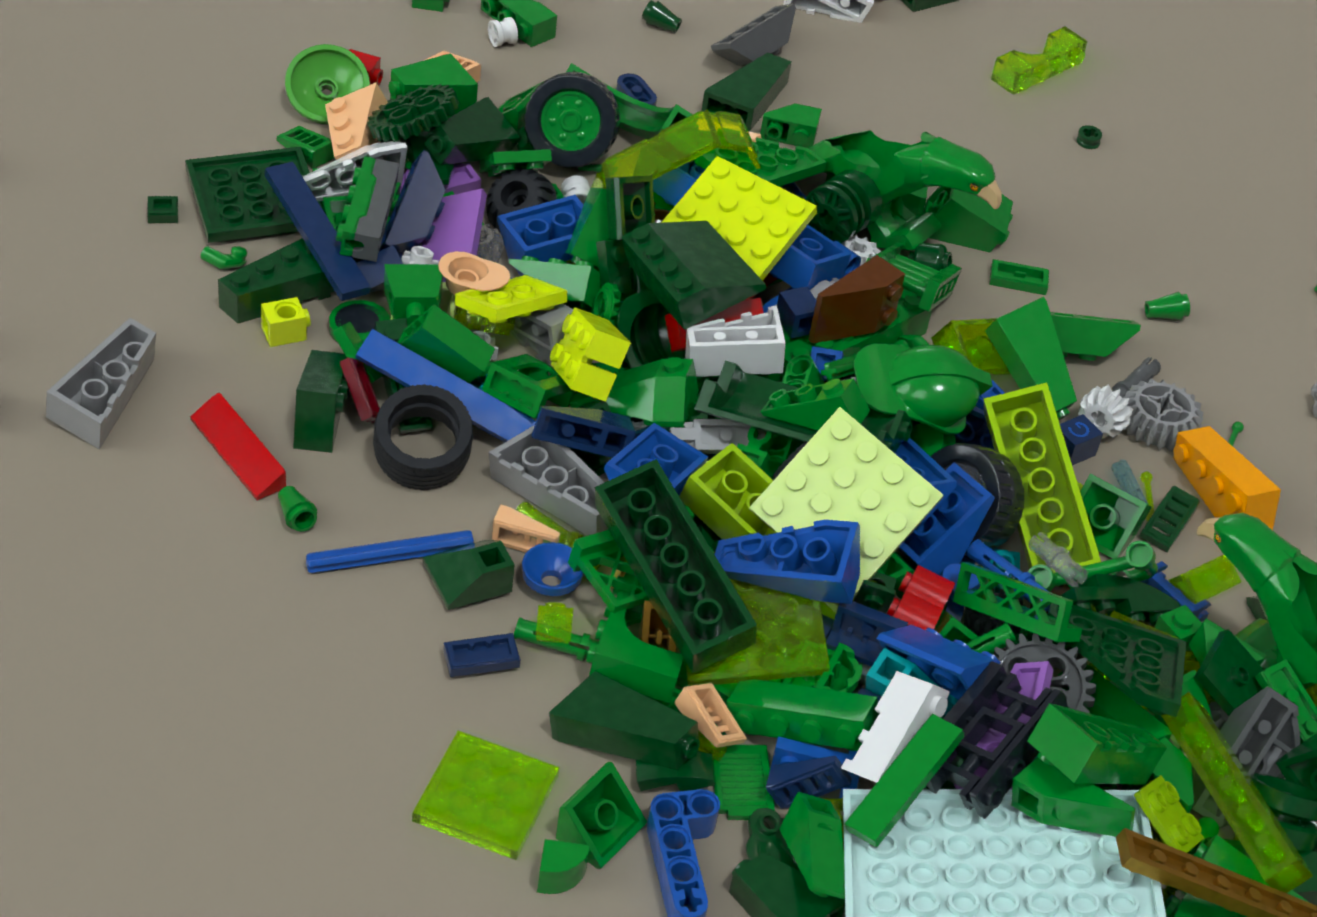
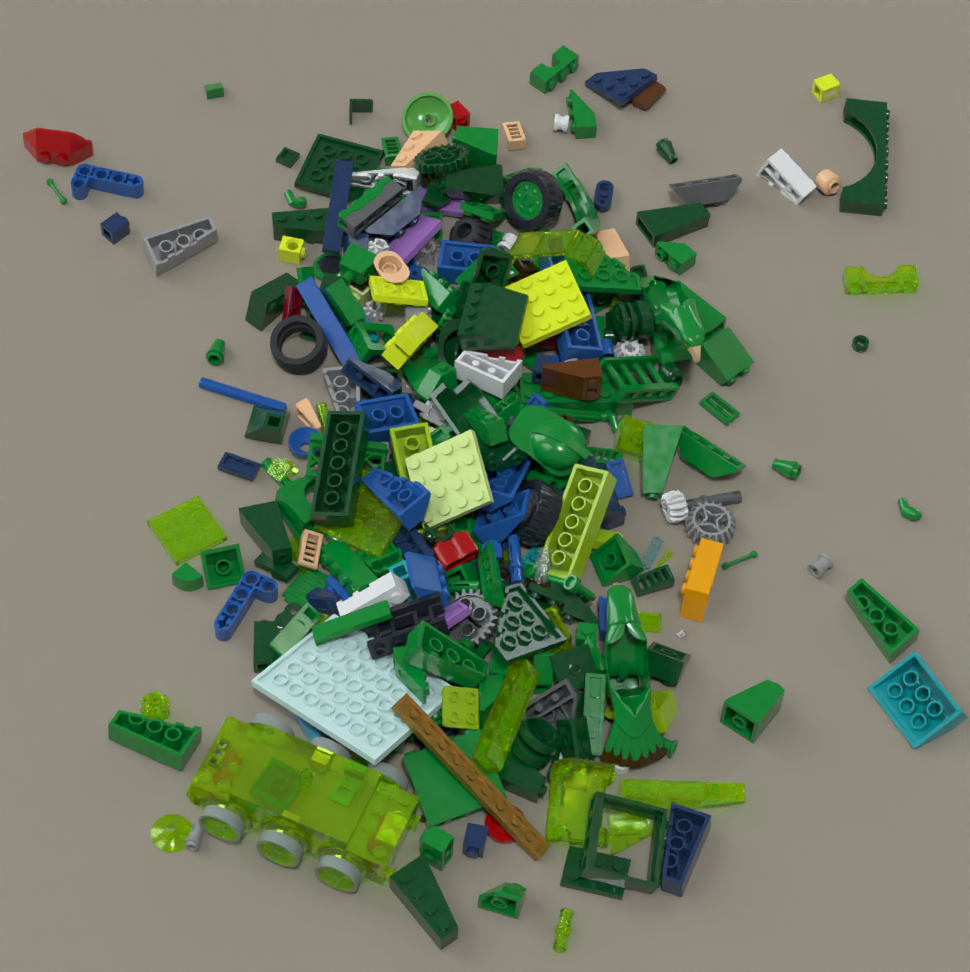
camera: 40 degrees right, 10 degrees up
(212, 107) = (360, 106): none -> dark green bracket
(239, 447) = (216, 308): red slope -> none
(1081, 438) = (643, 514): dark blue brick -> none

